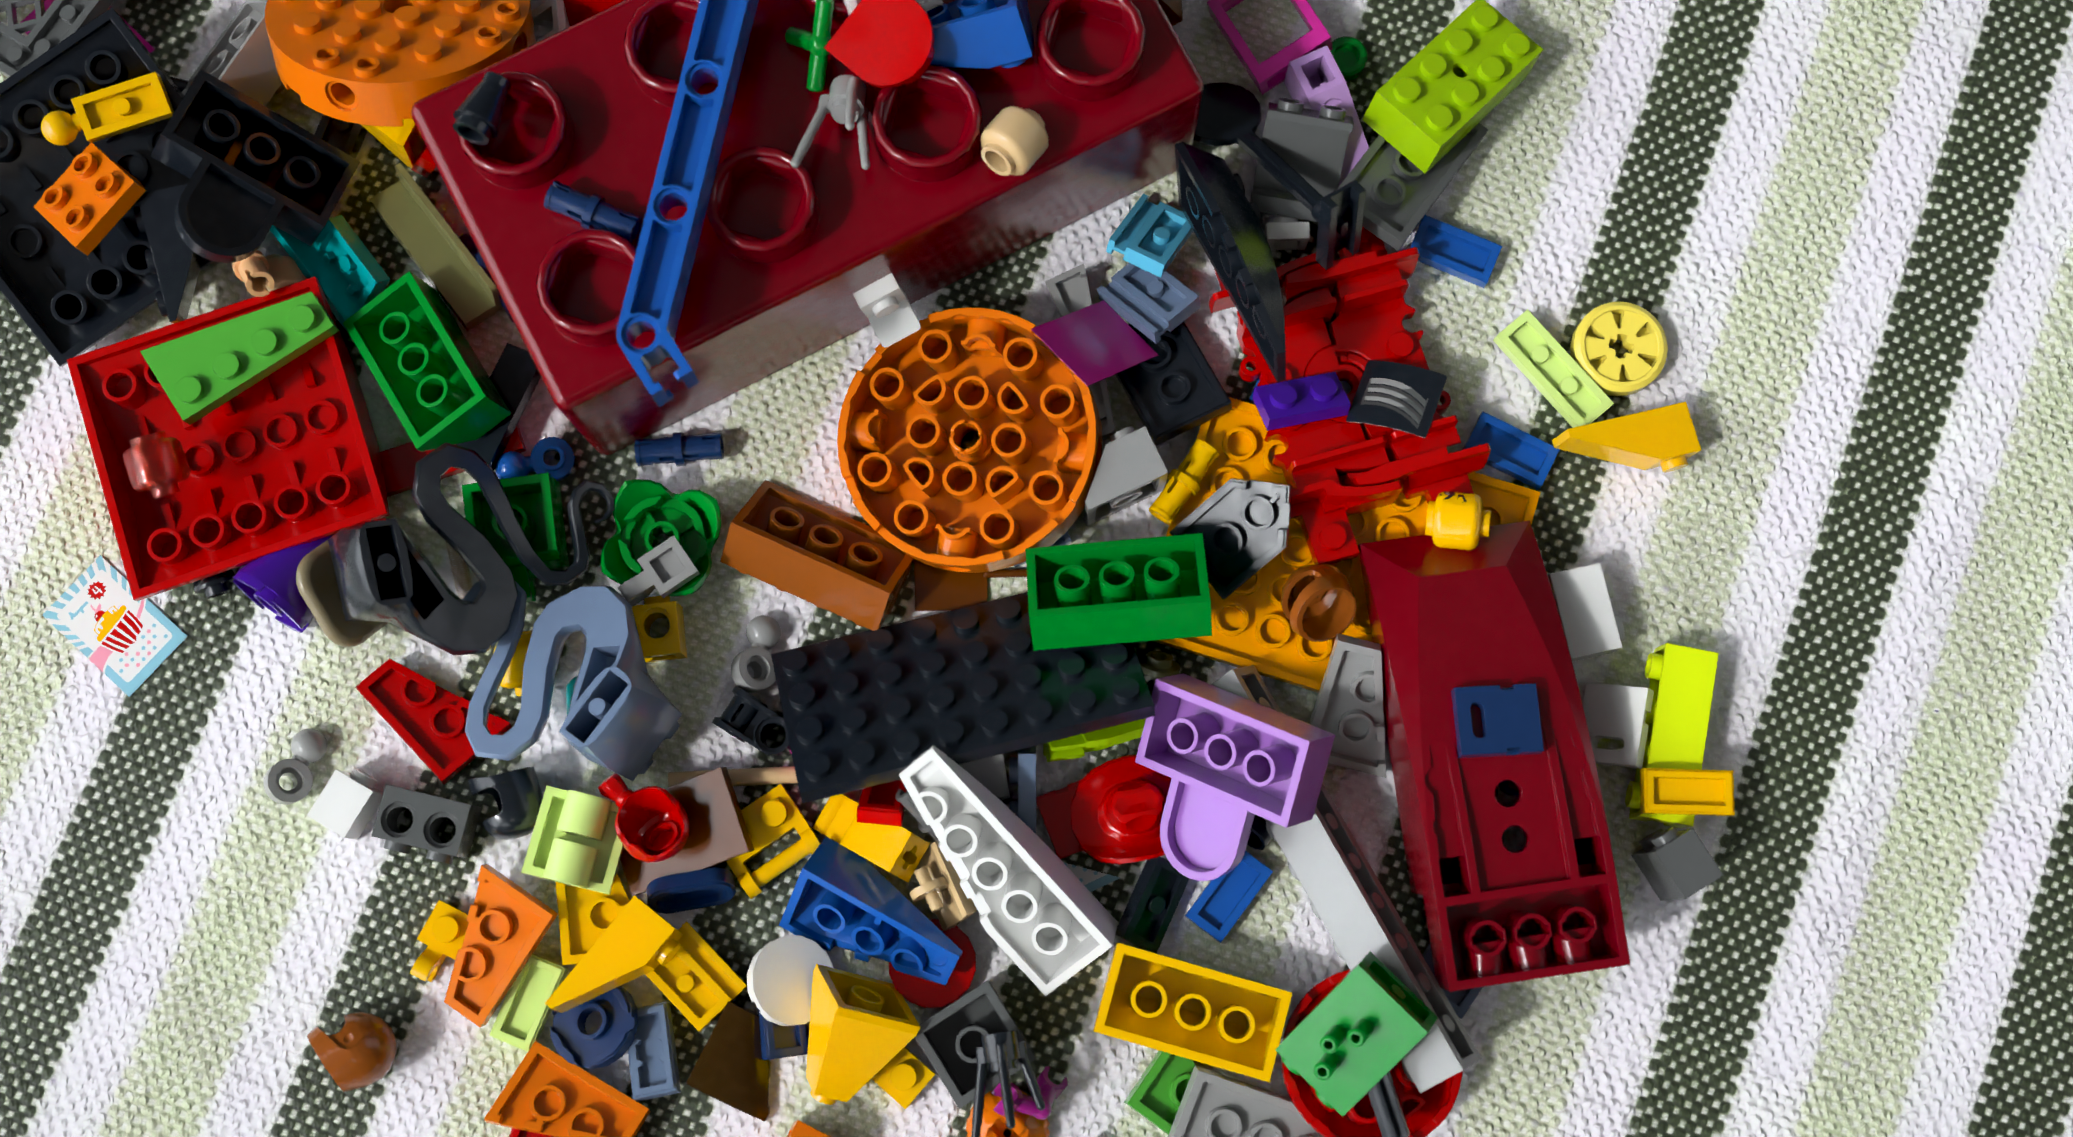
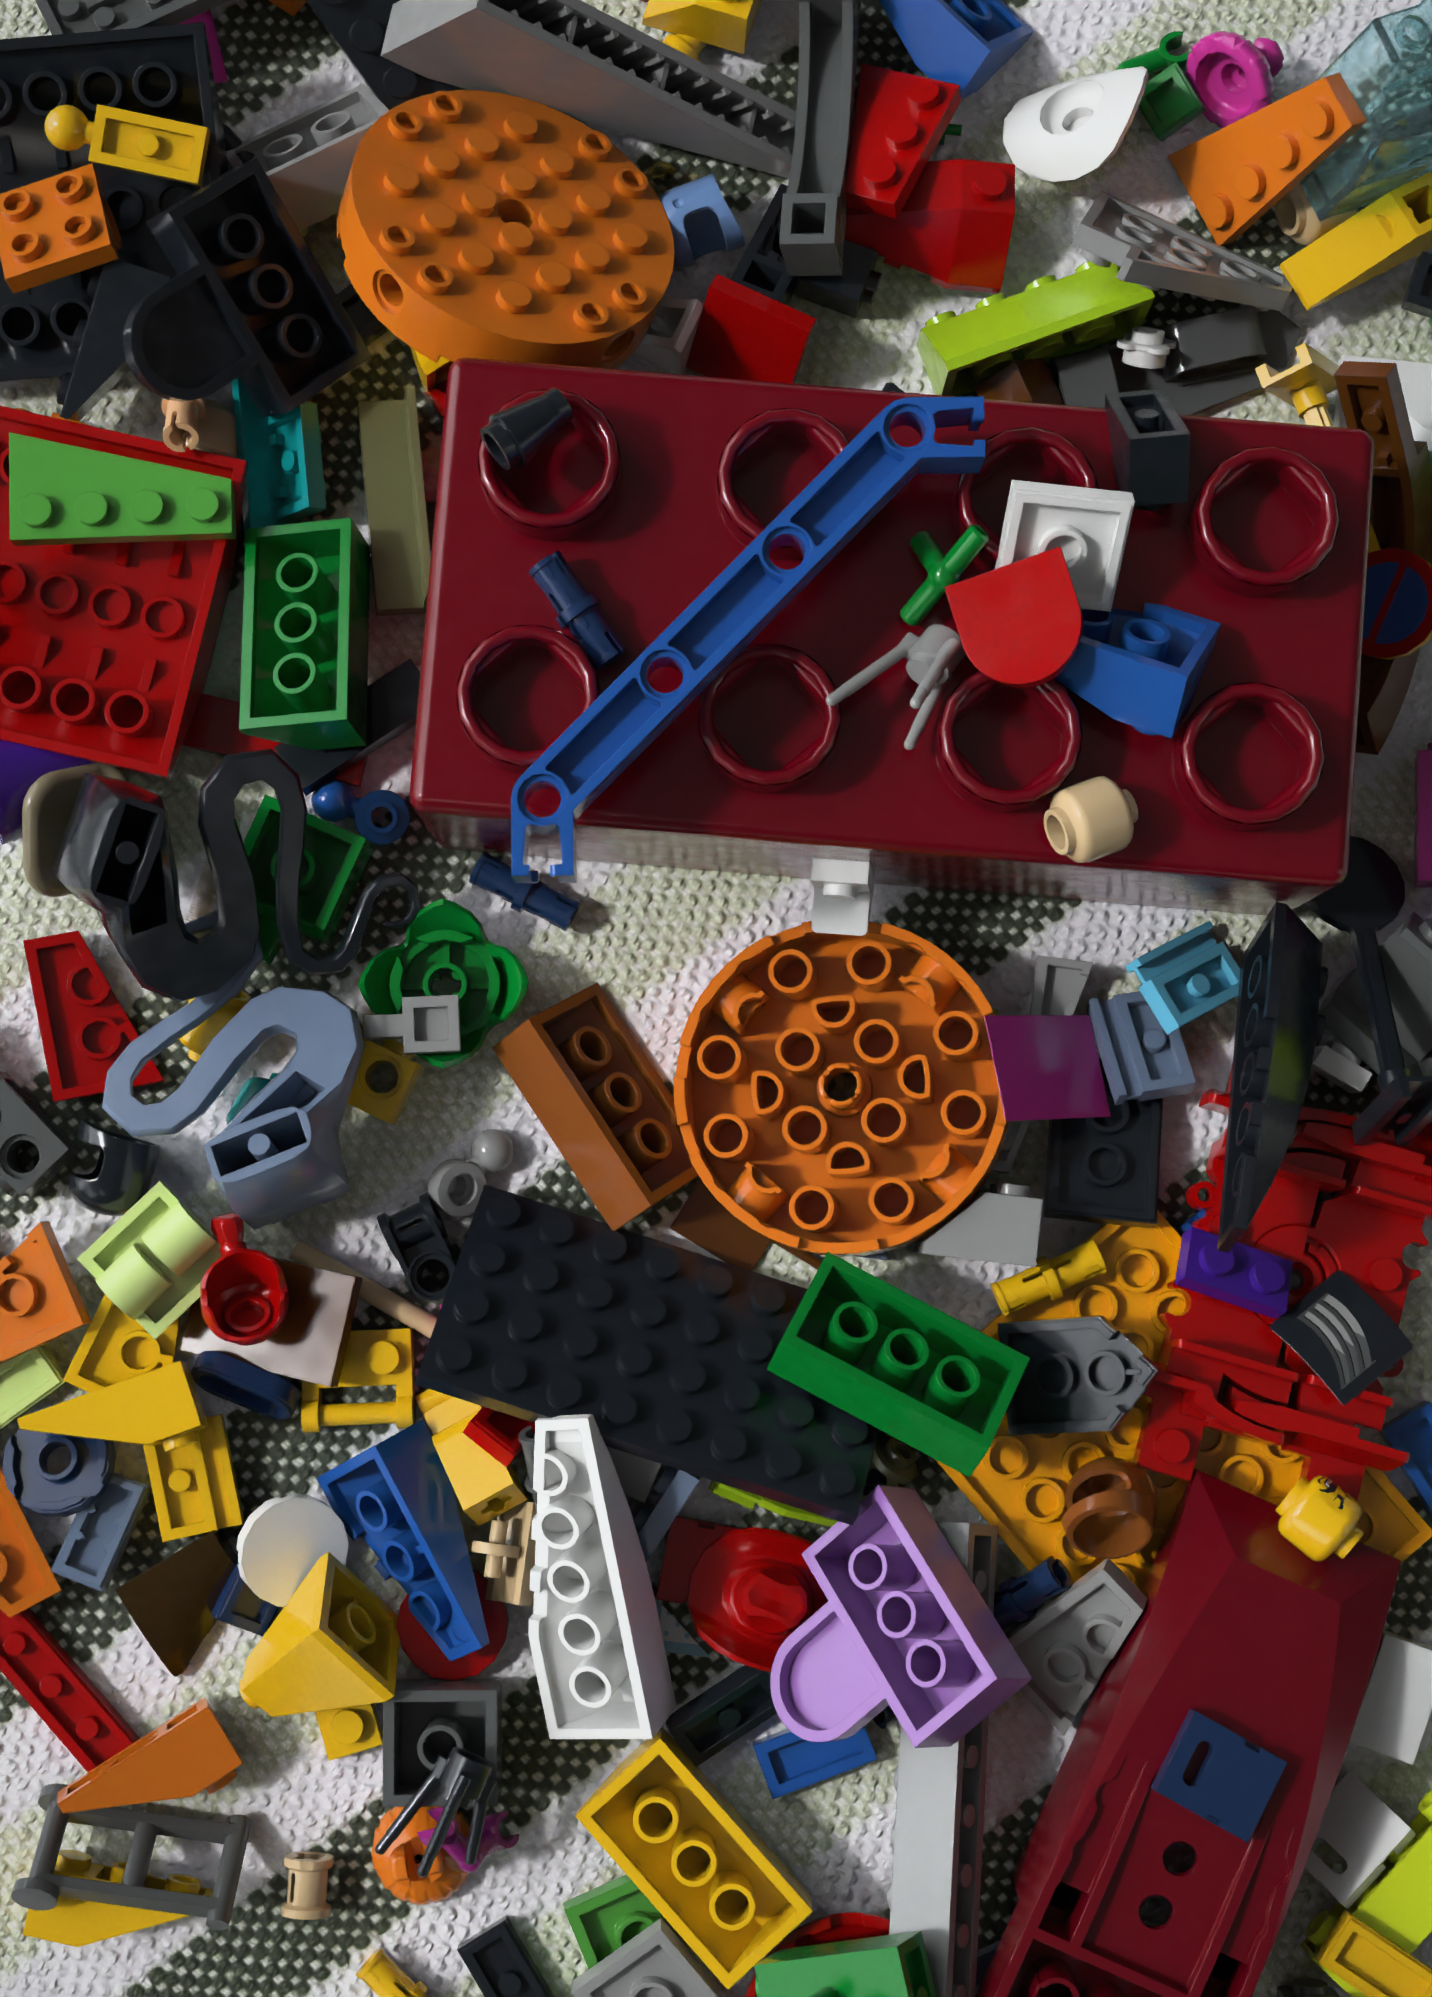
camera: 30 degrees right, 5 degrees up
(1301, 694) = (1020, 1597): none -> dark blue pin

